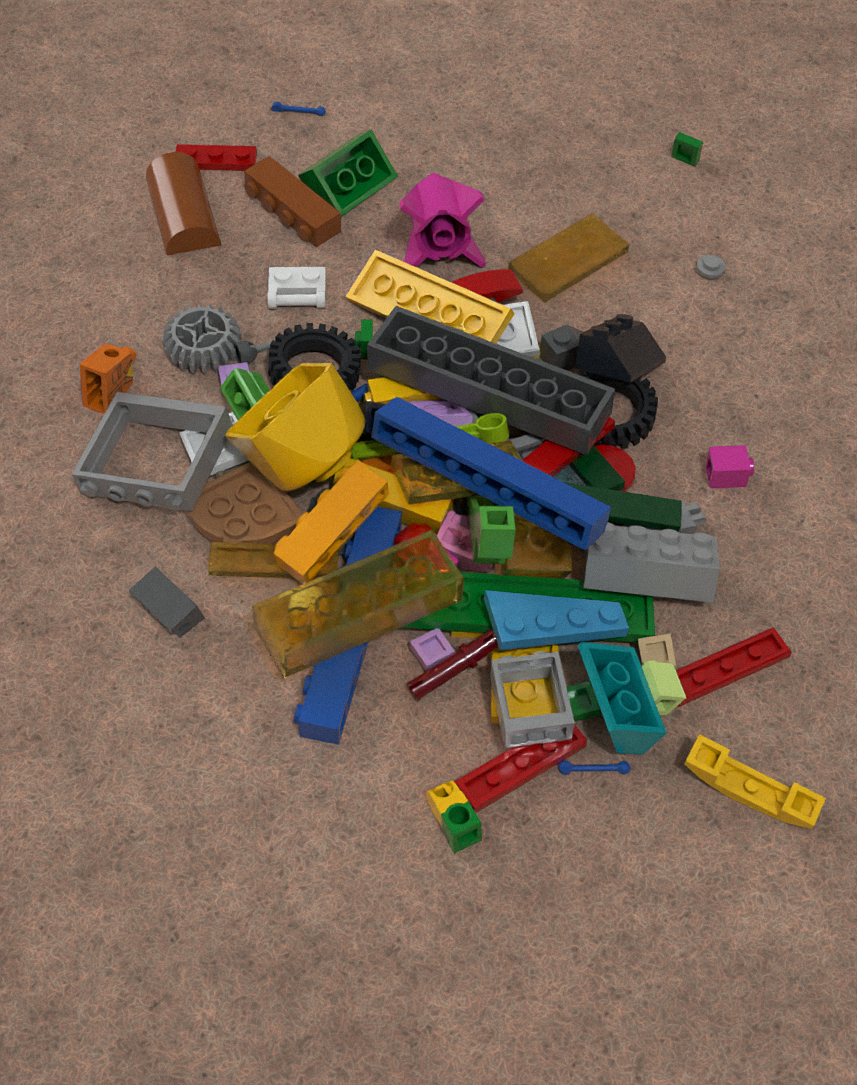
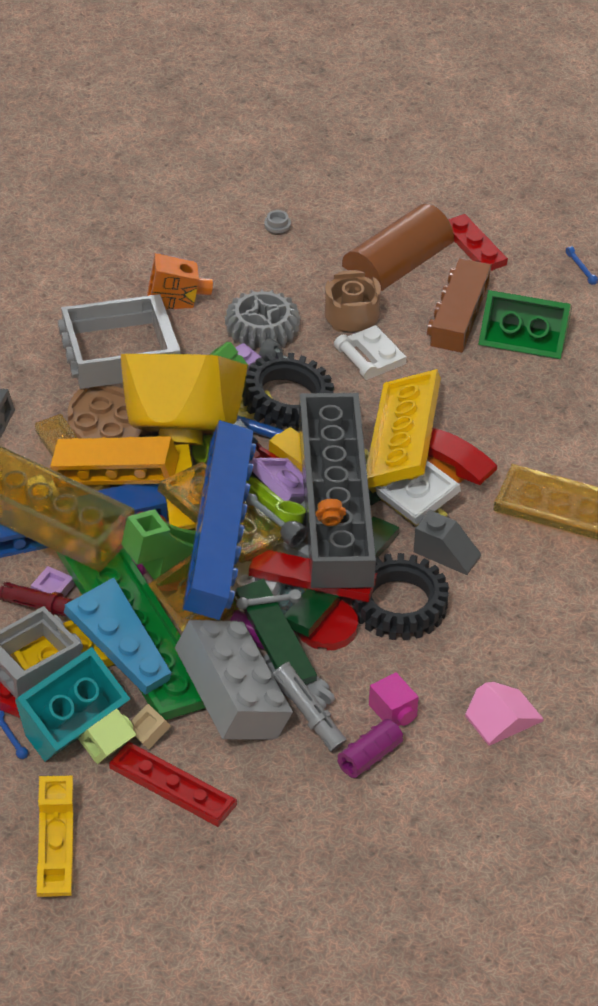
camera: 60 degrees right, 10 degrees down
(75, 269) = (277, 222): none -> light grey plate
(235, 265) = (352, 301): none -> medium nougat brick
(440, 220) = (506, 392): dark pink brick -> none
(519, 434) = (291, 532): none -> dark grey hinge
(547, 389) = (330, 512): none -> orange plate
(592, 471) = (293, 596): none -> light grey hinge
(619, 349) = (452, 564): black slope -> none
(722, 525) = (305, 701): none -> light grey pin
(769, 507) = (370, 748): none -> magenta axle
(773, 407) = (500, 712): none -> bright pink slope

